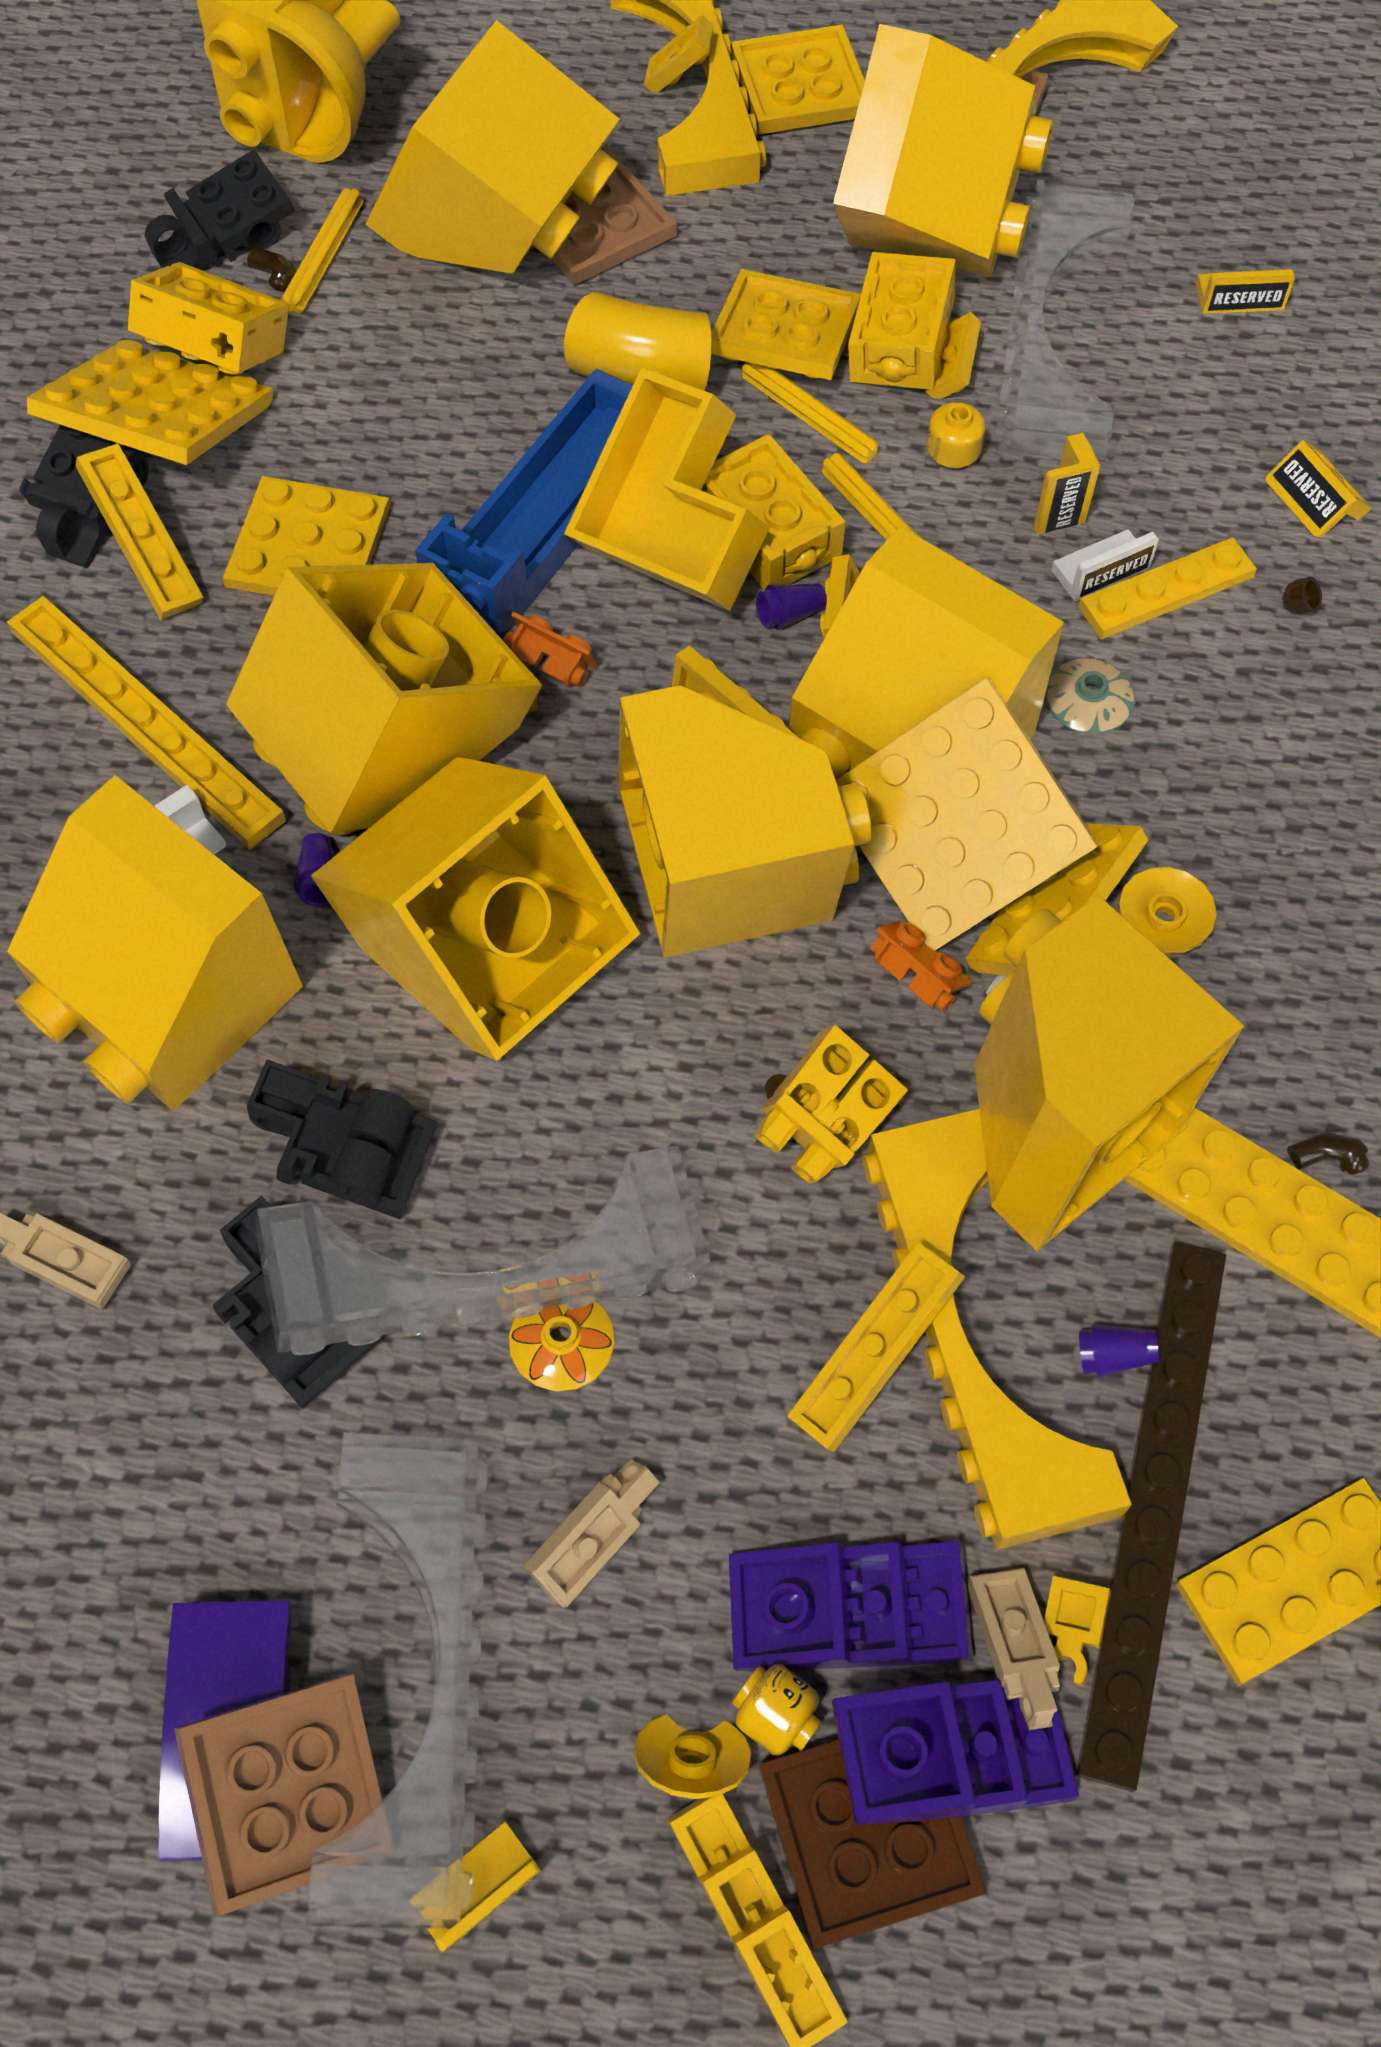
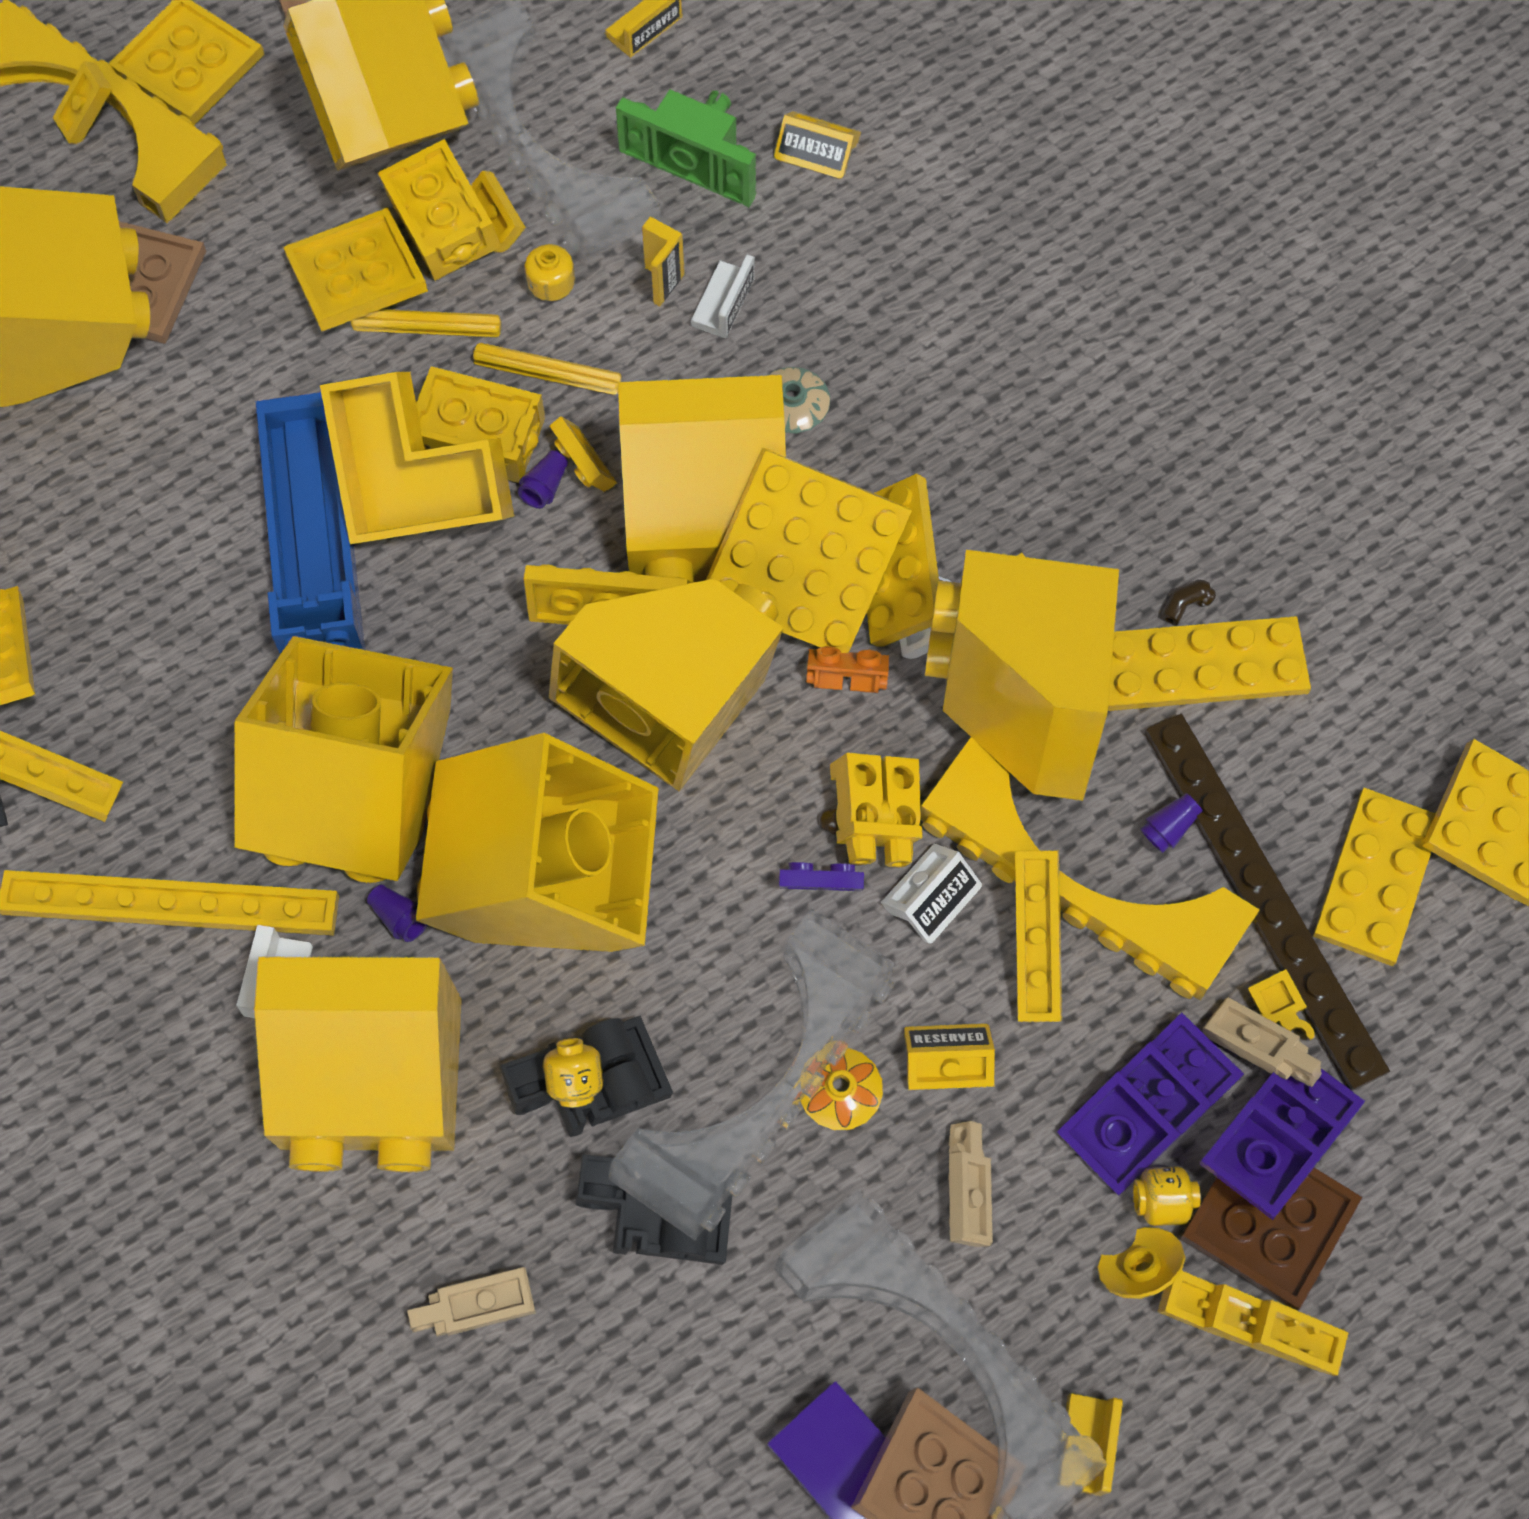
camera: 40 degrees left, 5 degrees up
(303, 528) = (157, 684): yellow plate -> none
(315, 1113) = (573, 1073): none -> yellow head
(566, 655) = (426, 631): orange hinge -> none
(630, 335) = (275, 359): yellow brick -> none
(688, 1393) = (949, 1056): none -> yellow panel
(702, 1116) = (839, 878): none -> dark purple plate
(816, 1230) = (933, 892): none -> white panel
(1166, 588) = (778, 285): yellow plate -> none
(1172, 893) = (970, 500): yellow dish -> none
(1187, 405) = (690, 142): none -> bright green brick
(1303, 596) = (870, 230): dark brown hinge -> none

